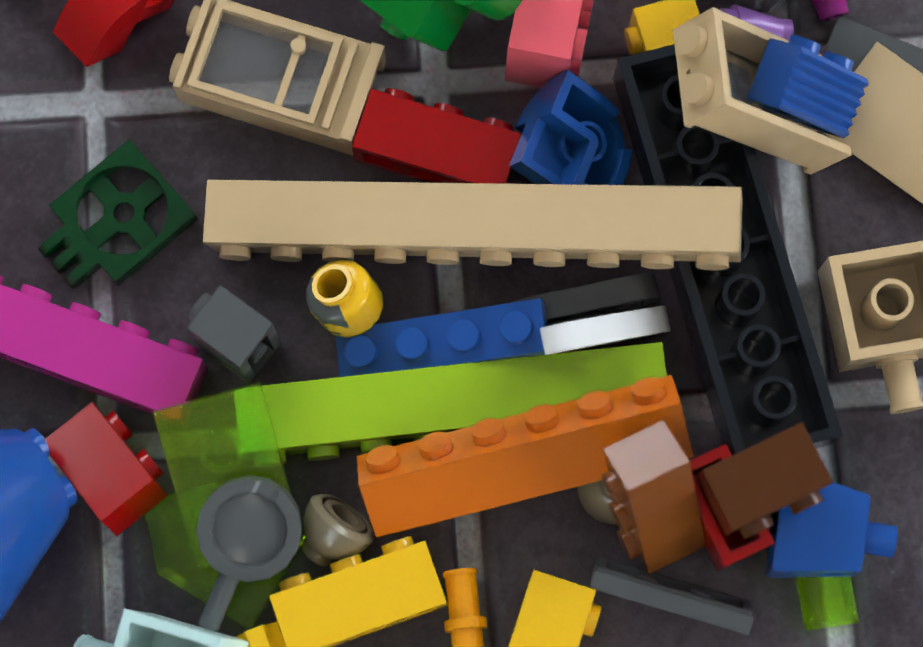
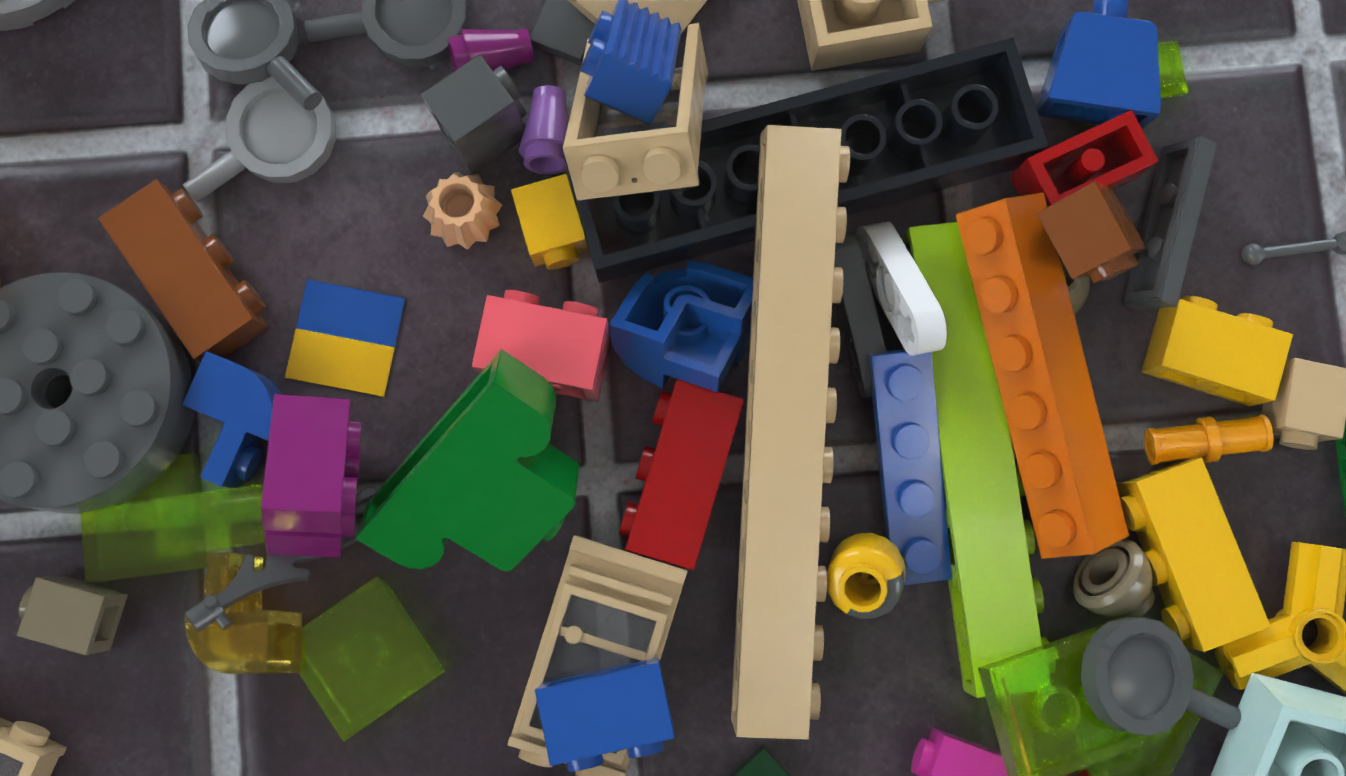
camera: 90 degrees left, 5 degrees up
(232, 64) = (605, 714): none -> blue brick
(233, 333) = (917, 702): dark grey brick -> none
(764, 481) = (1079, 113): reddish brown brick -> none

